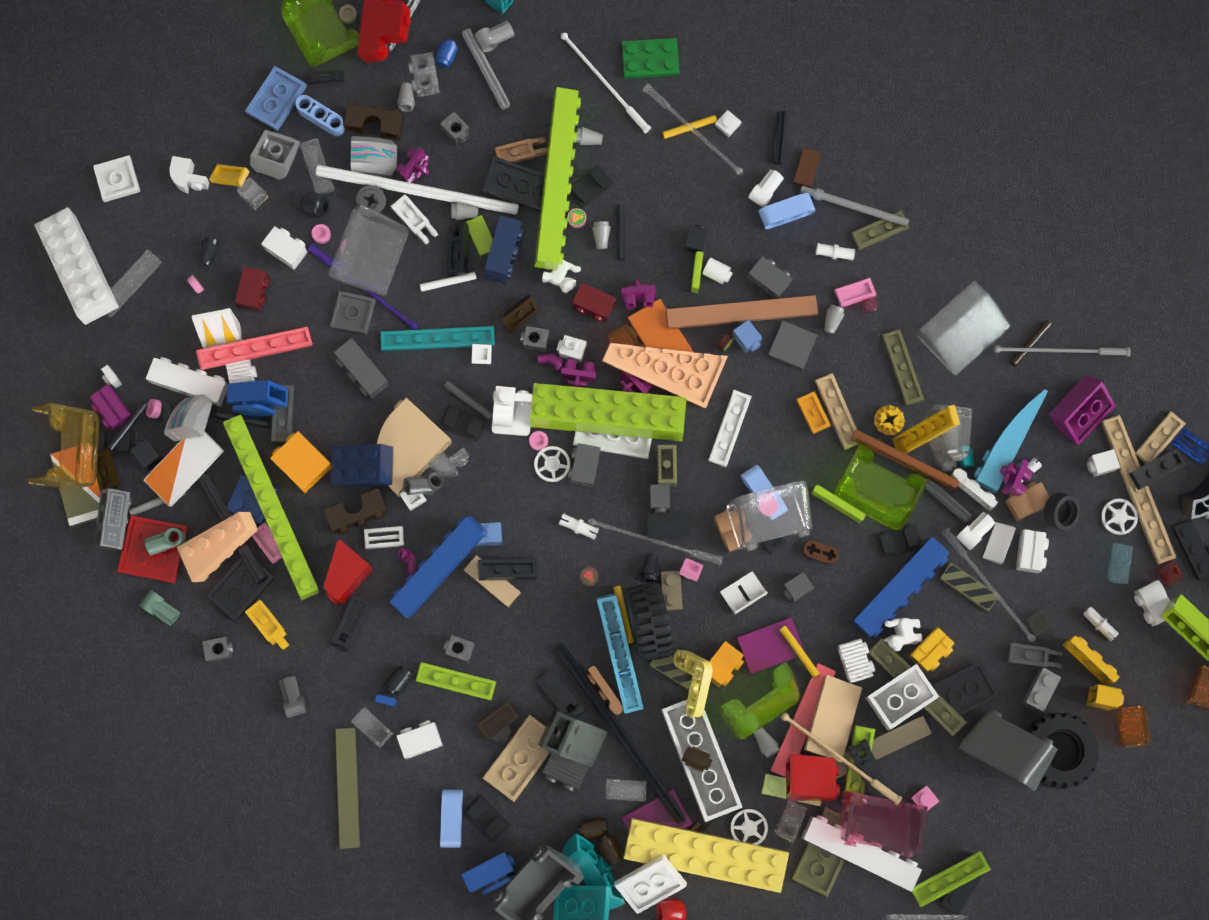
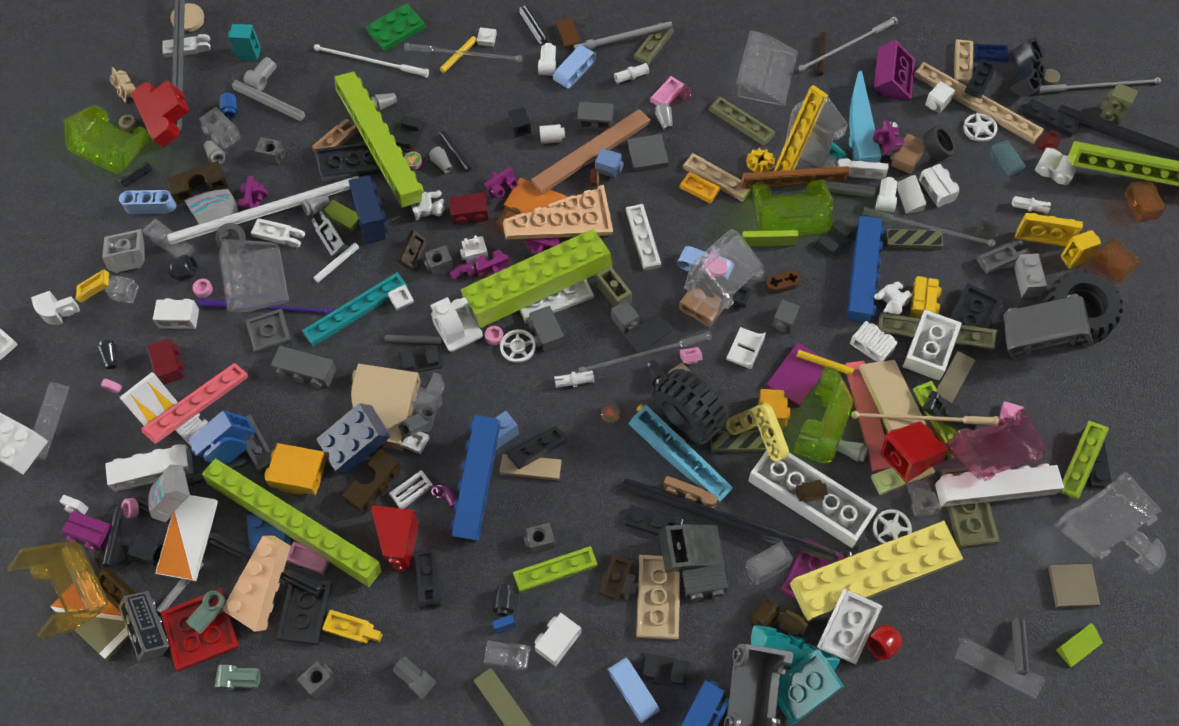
camera: 30 degrees left, 15 degrees down
(275, 98) = (100, 211): medium blue plate -> none
(697, 272) = (536, 143): lime tile -> none

